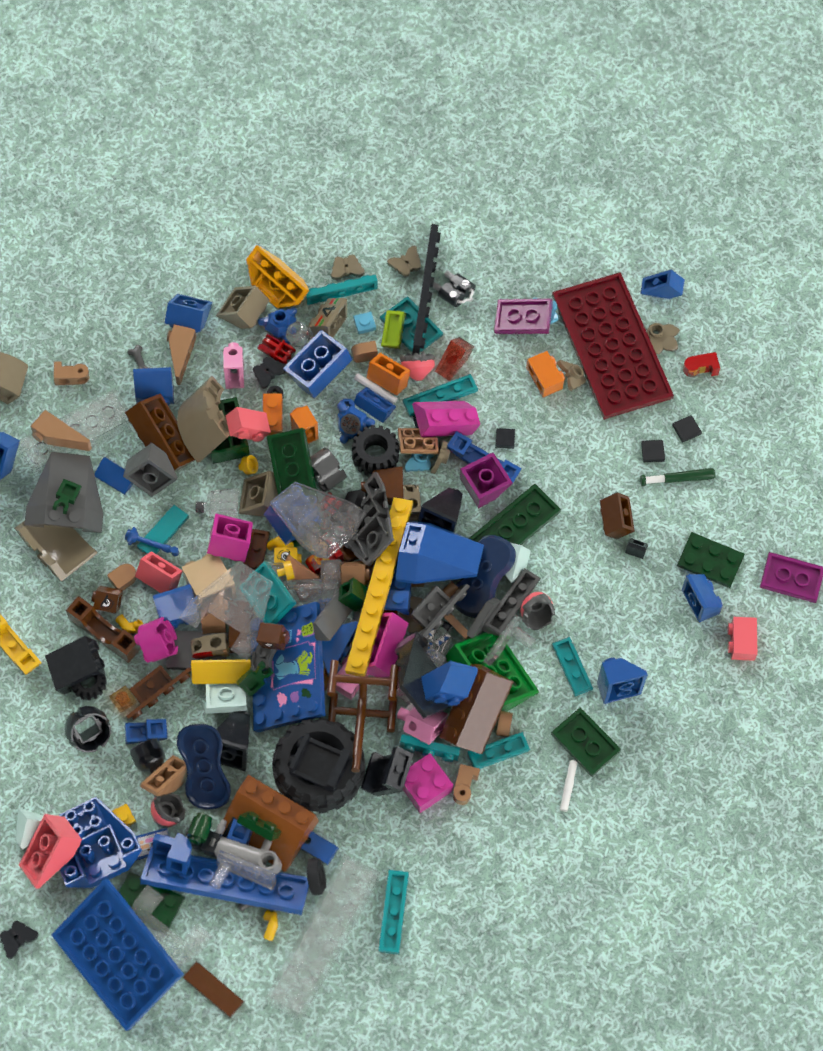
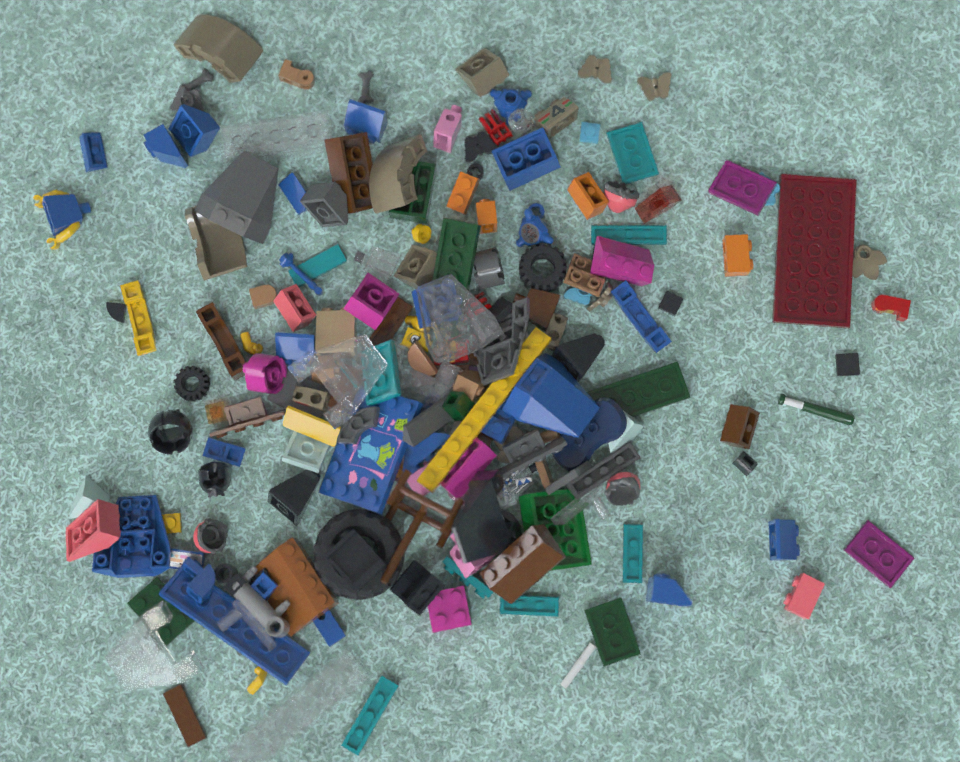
camera: 30 degrees right, 15 degrees up
(24, 933) = (29, 599): black animal -> none
(57, 433) = (253, 134): medium nougat slope -> none
(66, 494) = (239, 200): dark green plate -> none
(74, 663) = (184, 365): black panel -> none
(107, 599) = (239, 313): reddish brown brick -> none
(117, 954) = (111, 653): blue plate -> none
(167, 777) = (218, 509): medium nougat slope -> none
(181, 345) = (408, 88): medium nougat slope -> none
(187, 312) = (429, 56): blue slope -> none
(199, 828) = (227, 570): dark green brick -> none
(201, 751) = (258, 502): dark blue plate -> none
(248, 424) = (432, 198): coral brick -> none
(254, 680) = (336, 449): dark green plate -> none
(254, 823) = (280, 590): dark green plate -> none
(272, 636) = (366, 418): reddish brown brick -> none
(275, 279) = (524, 55): light orange wedge -> none
(287, 570) = (407, 357): yellow tile -> none
(316, 876) = (314, 655): black tyre -> none
(342, 289) = (575, 89): teal plate -> none
(364, 351) = (576, 163): medium nougat piece -> none
(374, 404) = (563, 219): blue slope -> none
(375, 388) = (571, 204): white piece -> none
(393, 329) = (613, 151): lime tile -> none
(425, 297) = (658, 129): black plate -> none
(449, 683) = (501, 538): blue slope -> none
(456, 290) = (691, 134): black piece -> none
(462, 787) = (478, 630): medium nougat leg -> none
(485, 479) = (632, 339): magenta slope -> none
(504, 723) = (545, 584): medium nougat piece -> none
(574, 374) = (764, 266): dark tan animal -> none
(653, 451) = (804, 373): black piece -> none
(663, 285) = (892, 209): blue slope -> none
(710, 558) = (809, 504): dark green plate -> none

